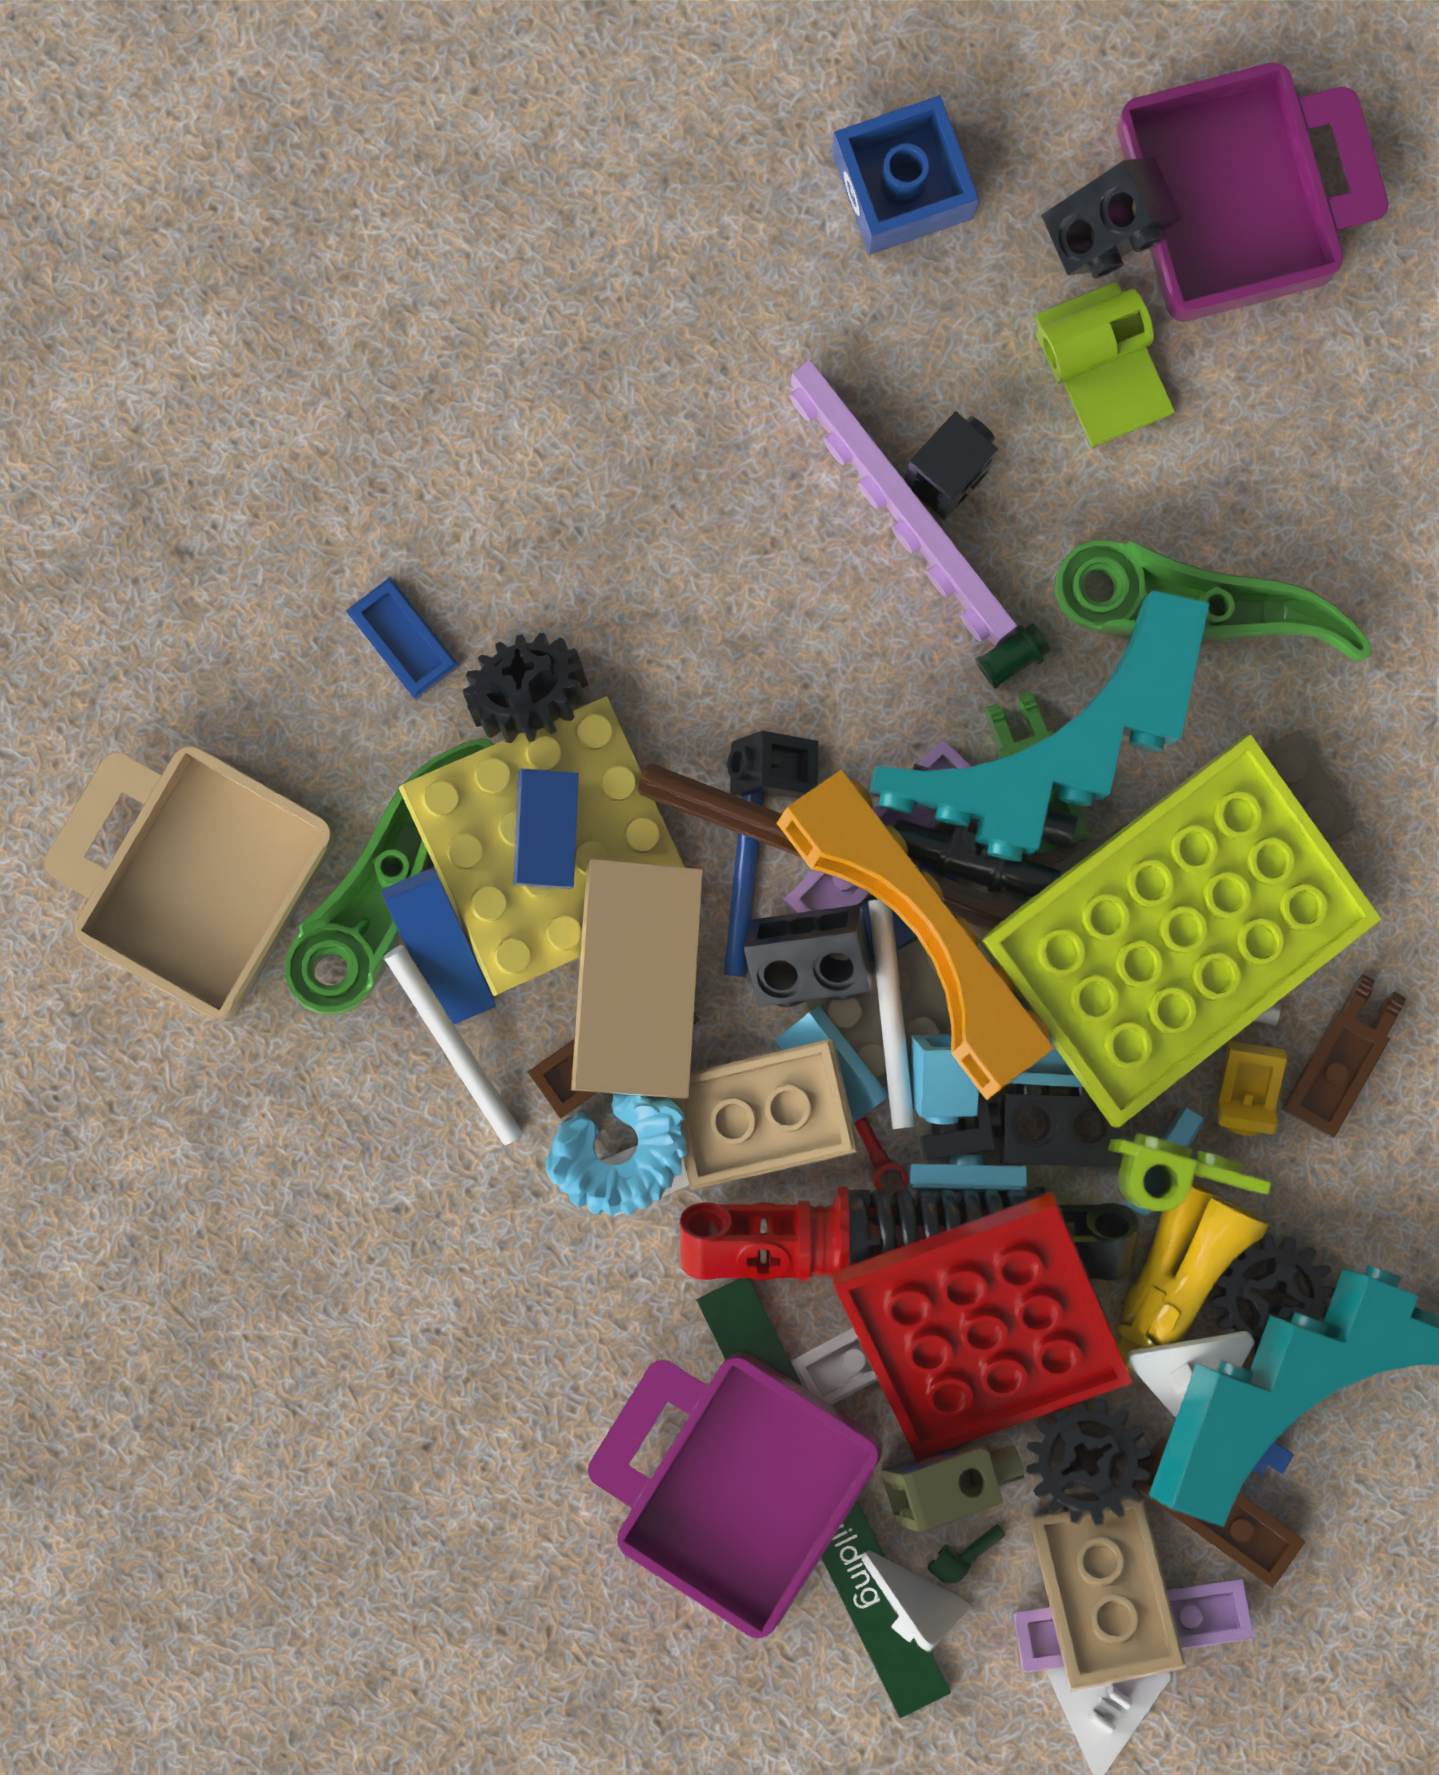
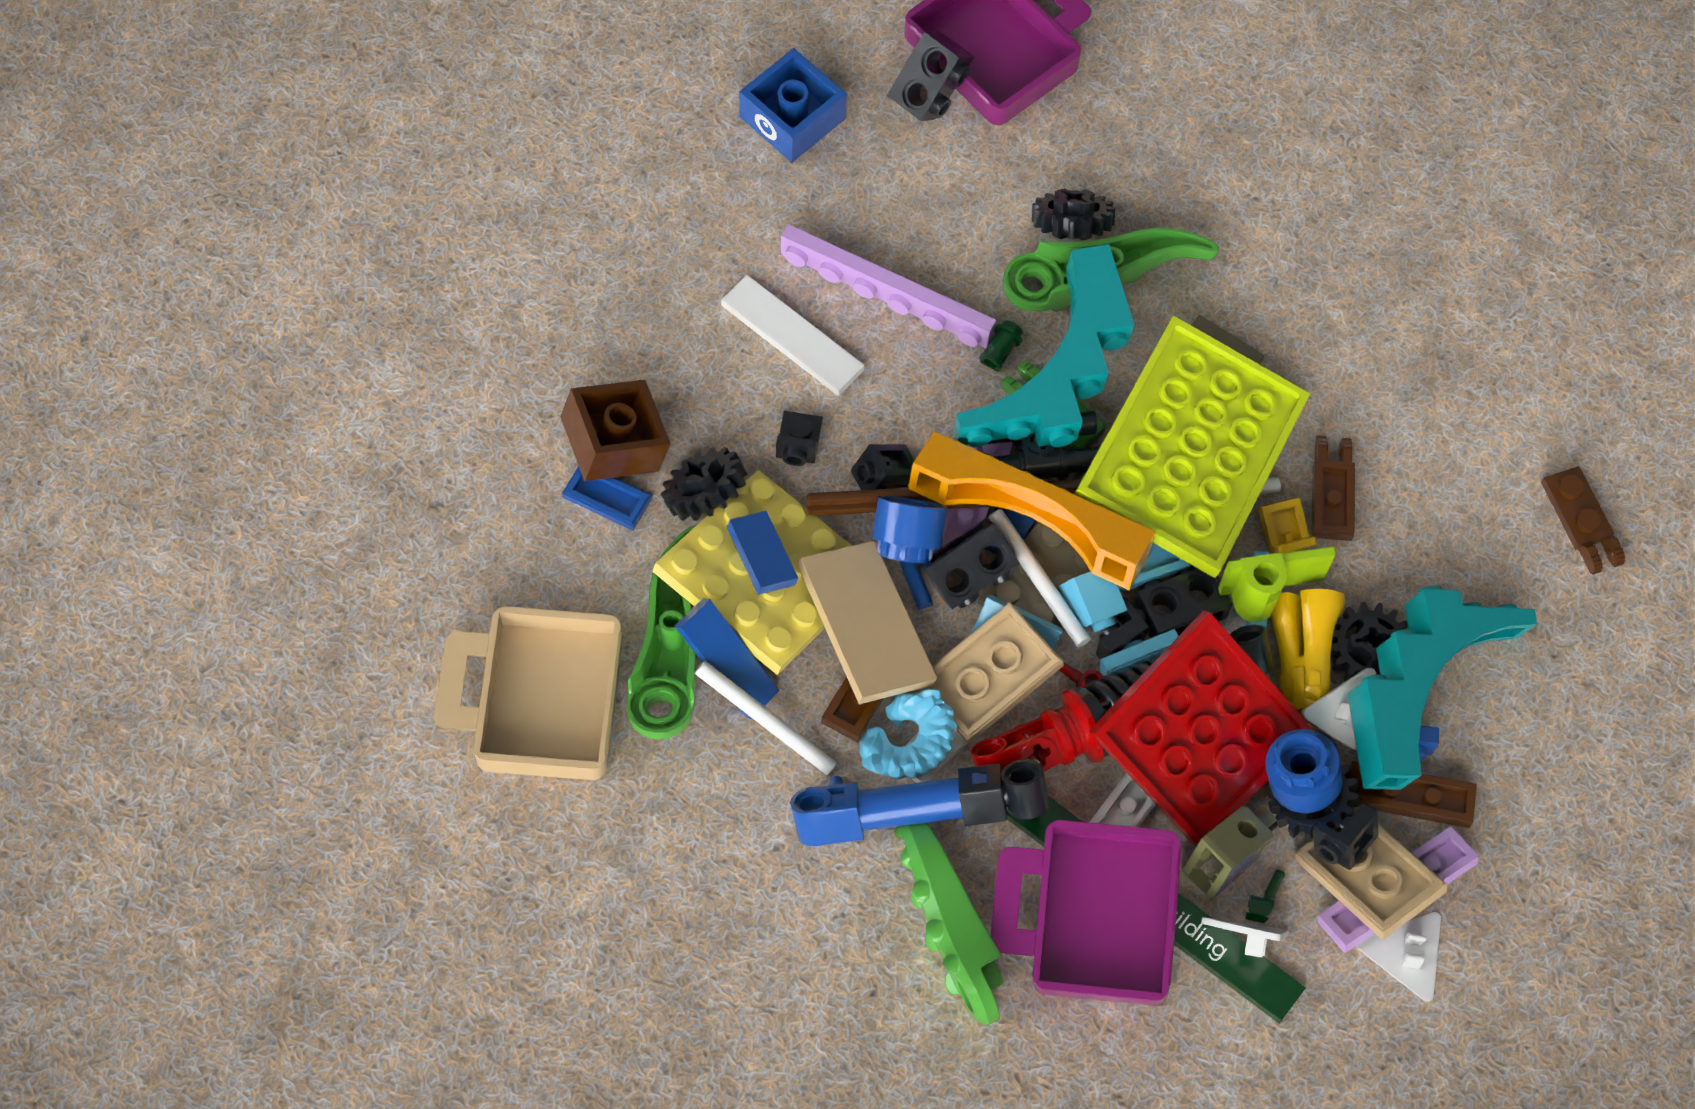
camera: 30 degrees left, 20 degrees down
(444, 561) = (615, 430): none -> reddish brown brick
(558, 1405) = (952, 923): none -> bright green animal
(655, 1277) = (978, 795): none -> blue piece
(684, 669) = (798, 438): none -> black bracket
(747, 514) = (792, 335): none -> white tile
(750, 878) = (908, 528): none -> blue piece
(951, 463) = (908, 242): black brick -> none
(1052, 1431) = (1305, 791): none -> blue piece
(1104, 361) = (966, 162): lime piece -> none
(1107, 1545) = (1350, 841): none -> black bracket
(1202, 512) = (1073, 214): none -> black gear

